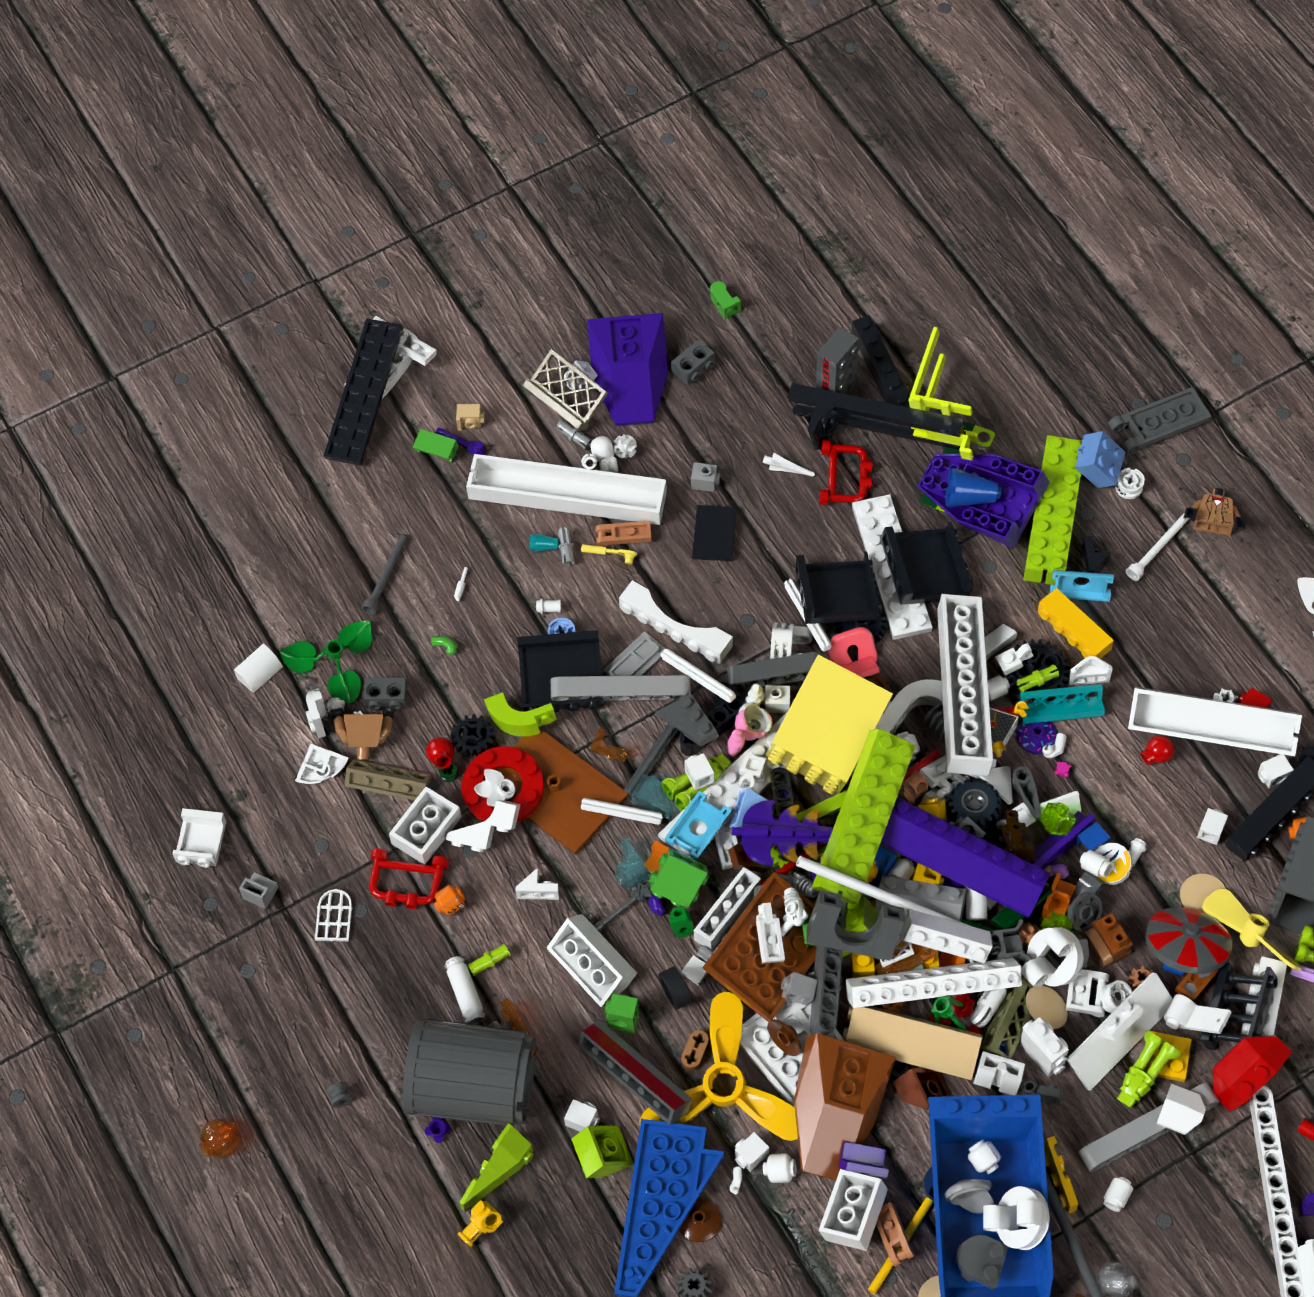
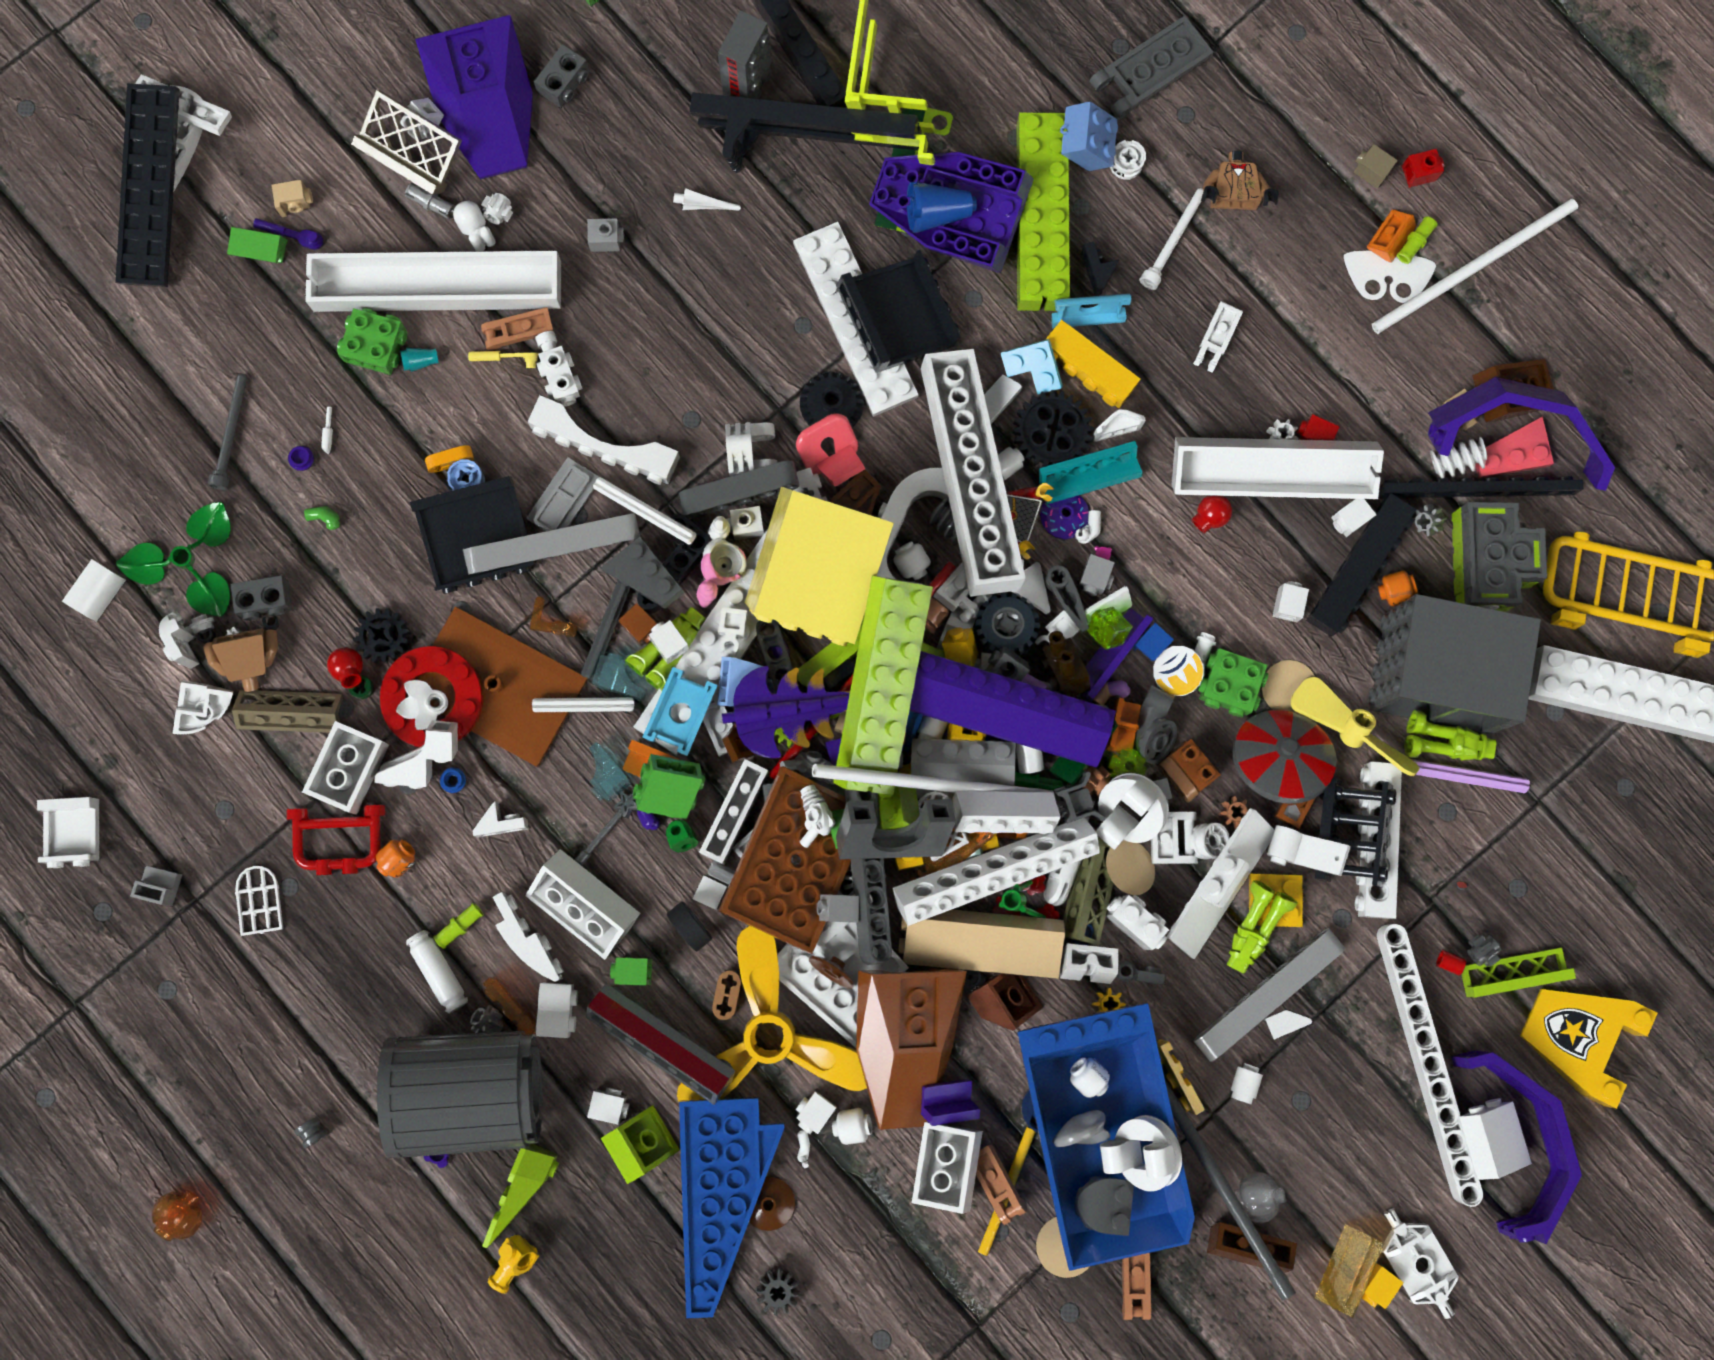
camera: 20 degrees left, 20 degrees up
(436, 600) = (301, 458): none -> dark purple plate
(506, 846) = (445, 777): none -> blue plate
(509, 525) = (372, 340): none -> bright green brick
(518, 722) = (429, 611): lime arch -> none
(539, 981) = (530, 949): none -> white slope
(543, 618) = (443, 460): none -> light orange beam
(548, 606) = (441, 443): white pin -> none
(554, 1035) = (555, 1010): none -> white brick
(566, 547) = (449, 359): light grey axle -> none
(592, 464) = (458, 237): white pin -> none
(648, 566) = (558, 372): none -> white brick
(675, 758) = (638, 624): none -> dark orange brick
(714, 533) = (630, 309): black tile -> none
(769, 935) = (792, 852): white hinge -> none
(816, 629) = (765, 405): white axle -> none
(838, 591) = (796, 367): black panel -> none
(865, 467) = (801, 188): red bar -> none
(1011, 661) = (1022, 427): white plate -> none
(1031, 613) = (1035, 358): none -> plate
(1037, 678) = (1058, 446): lime pin -> none
(1054, 781) = (1096, 575): none -> light grey brick
(1096, 864) = (1162, 677): white brick -> none
(1155, 880) = (1232, 682): none -> bright green brick
(1160, 1155) = (1286, 1022): none -> white sticker
(1181, 1110) = (1307, 972): white slope -> none
(1184, 620) = (1219, 333): none -> white hinge
(1247, 1069) = (1380, 913): red wedge -> none

